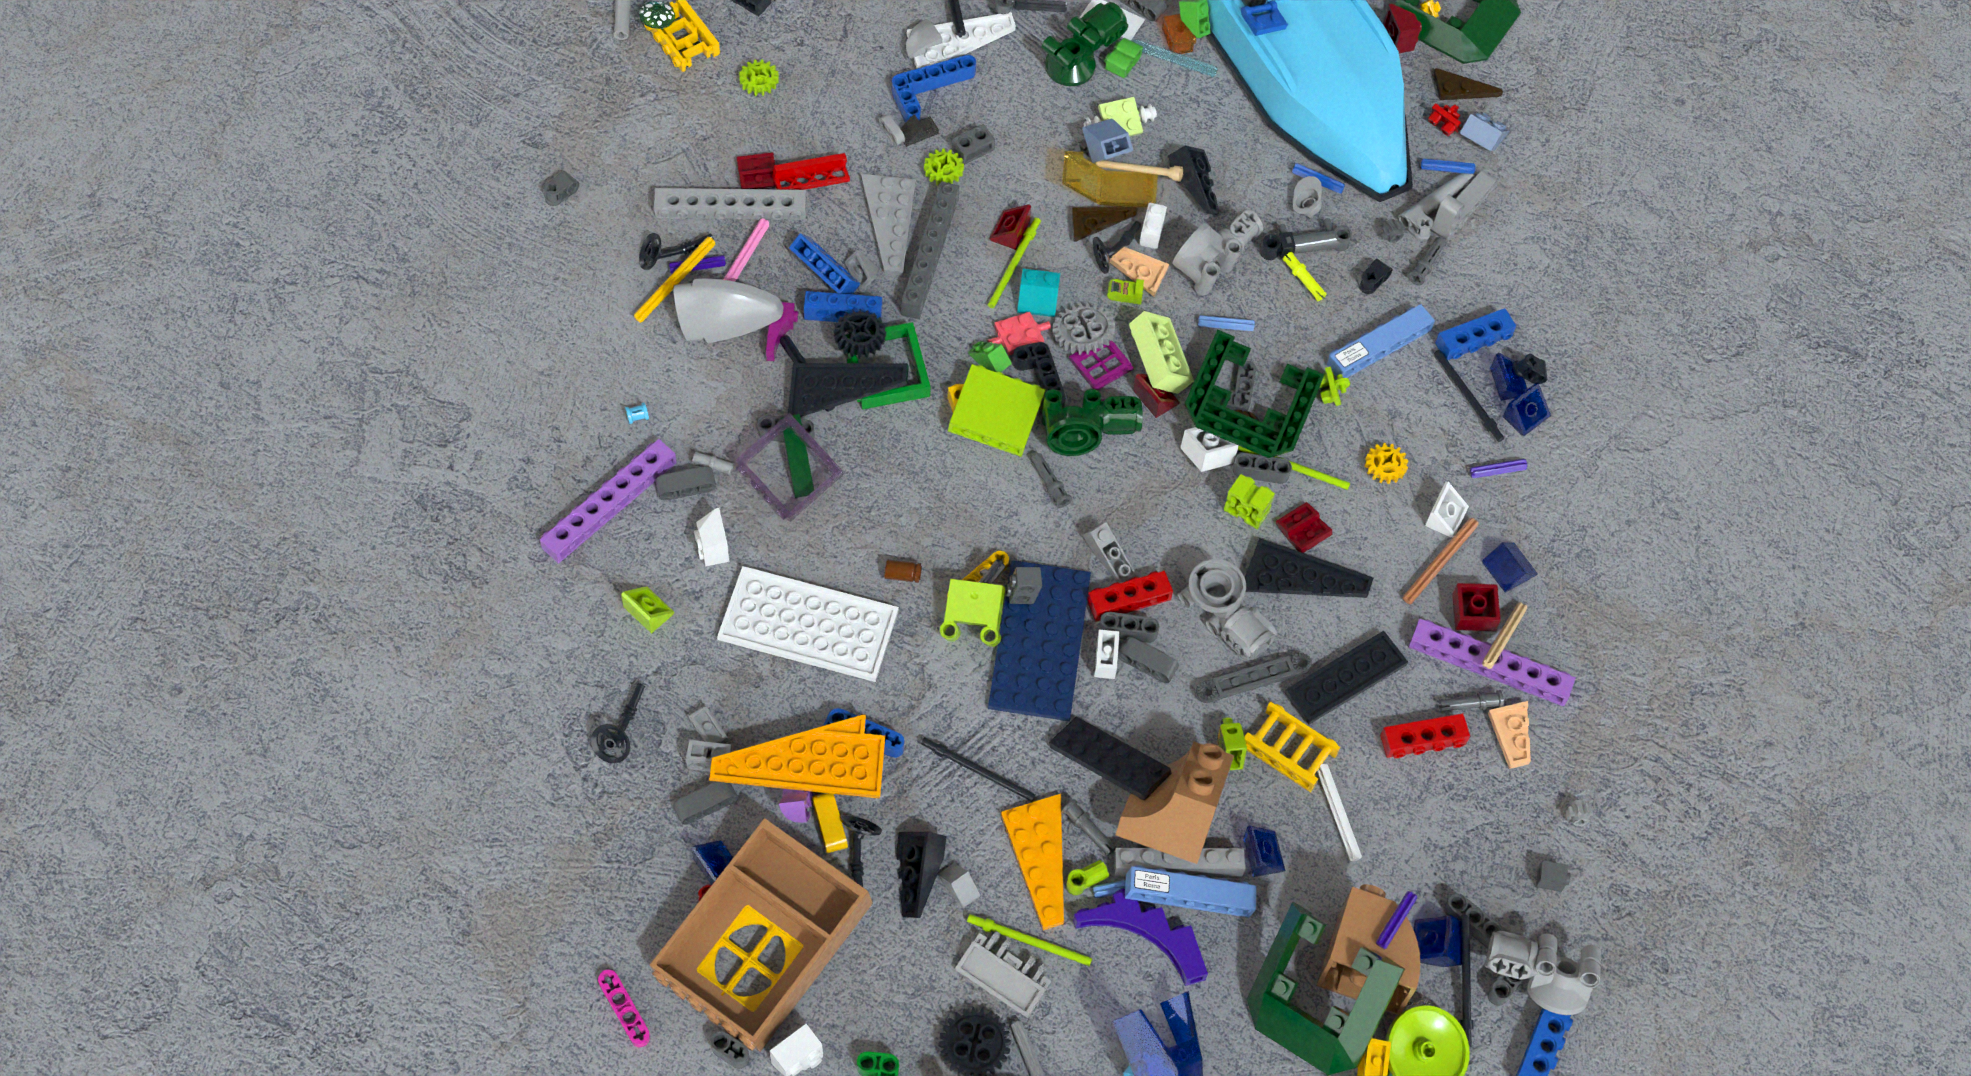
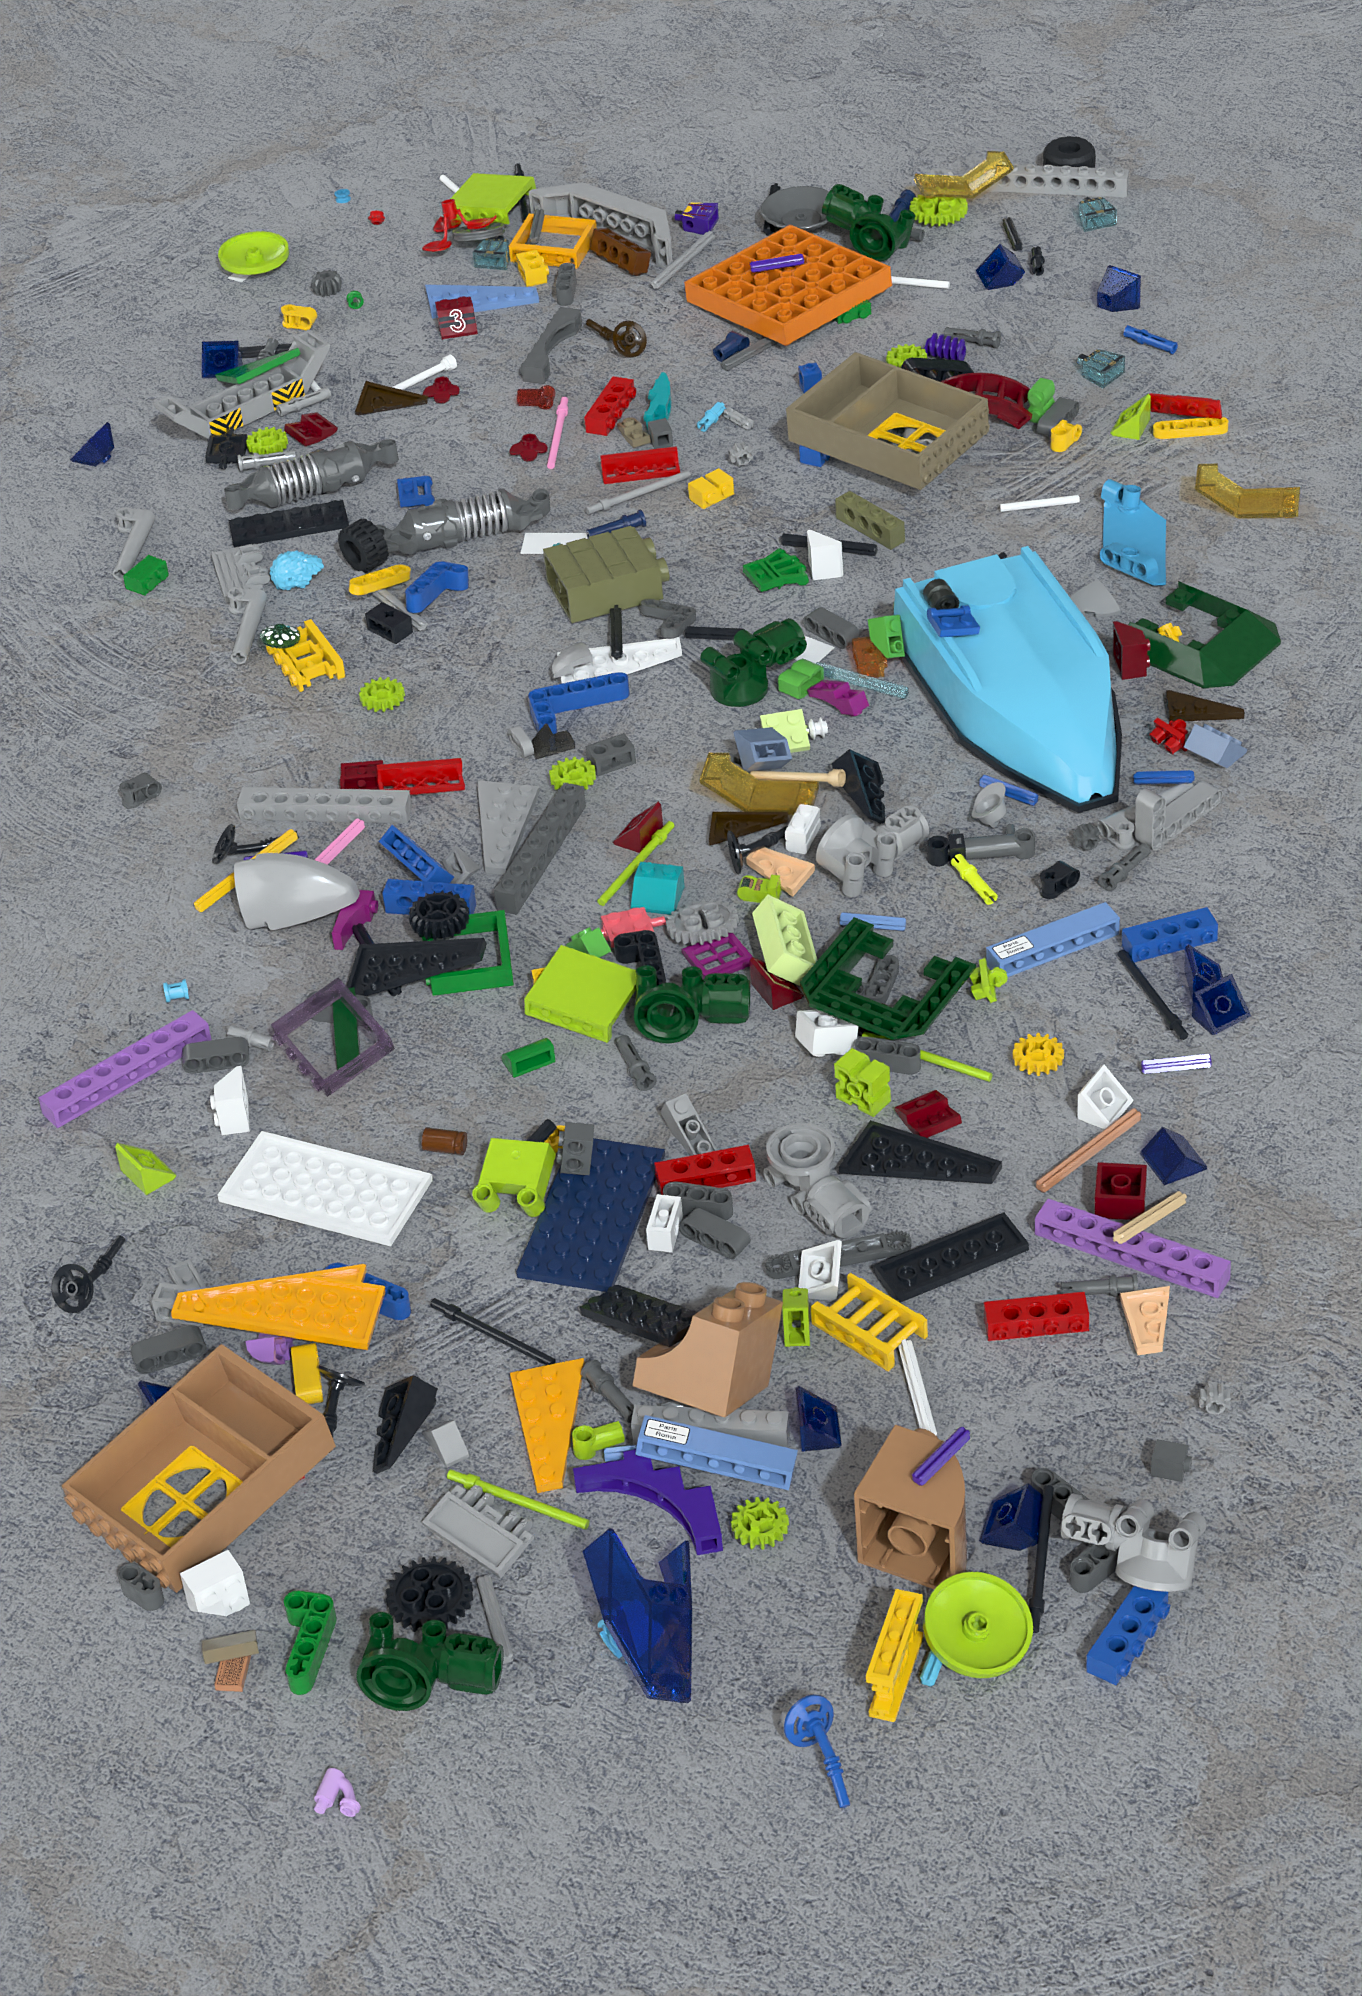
camera: 15 degrees right, 20 degrees down
(621, 1009) = (30, 1543): dark pink beam -> none
(959, 477) = (529, 1057): none -> green brick
(1161, 77) = (840, 695): none -> magenta slope
(1225, 954) = (759, 1523): none -> lime gear
(1246, 700) = (821, 1270): none -> white slope
(1344, 1036) = (863, 1592): dark green slope -> none
(1531, 369) = (1232, 964): black piece -> none

